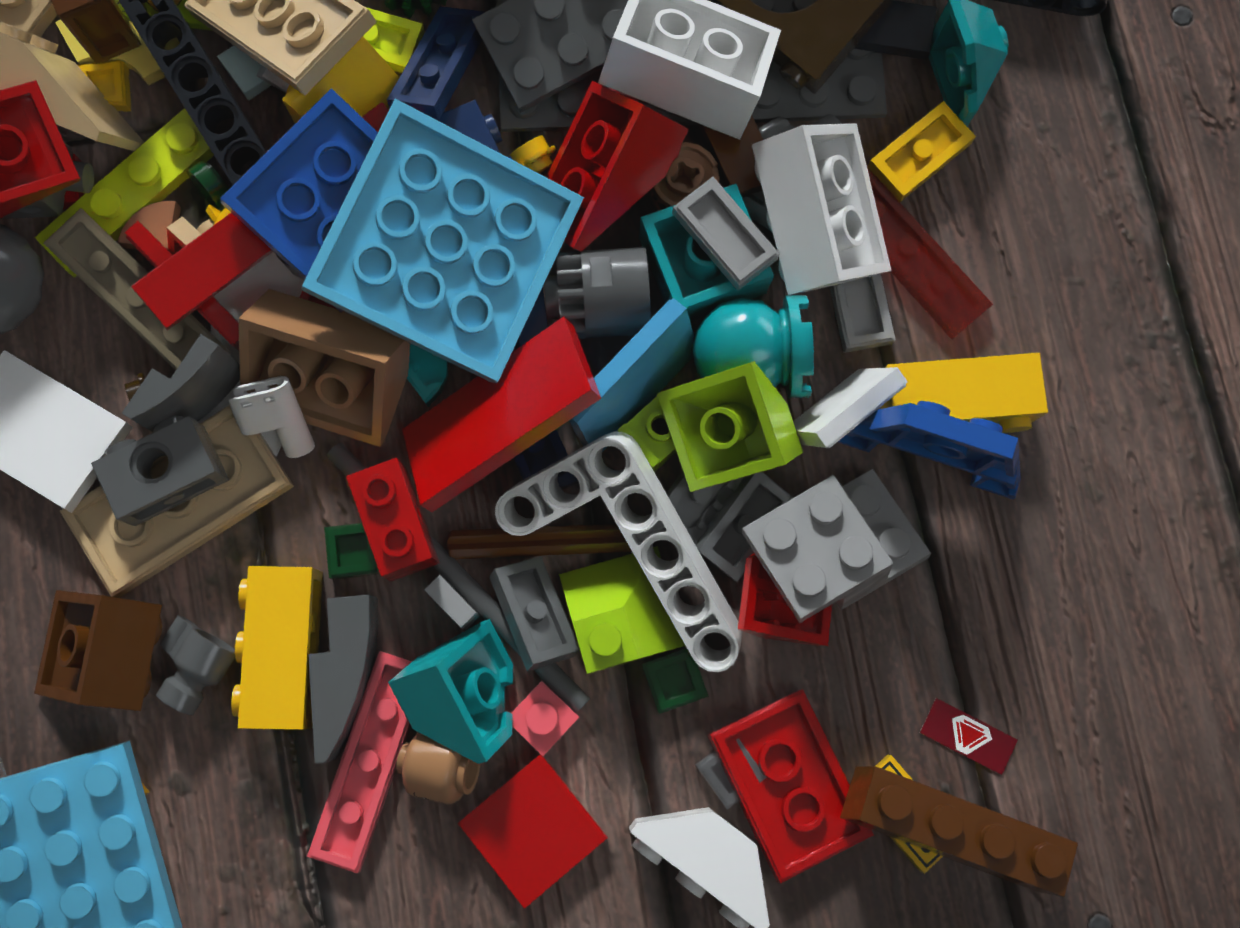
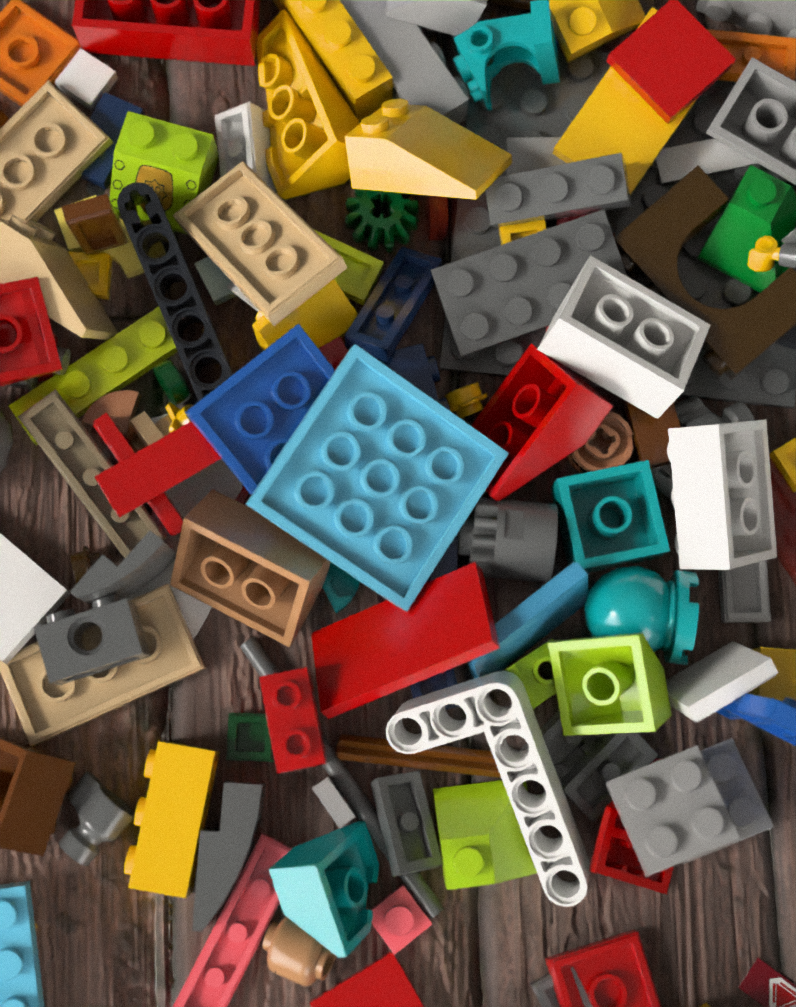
camera: 10 degrees right, 0 degrees up
(273, 410) = (198, 600): white piece -> none
(674, 680) = (522, 904): dark green tile -> none
(725, 233) = (632, 506): light grey tile -> none

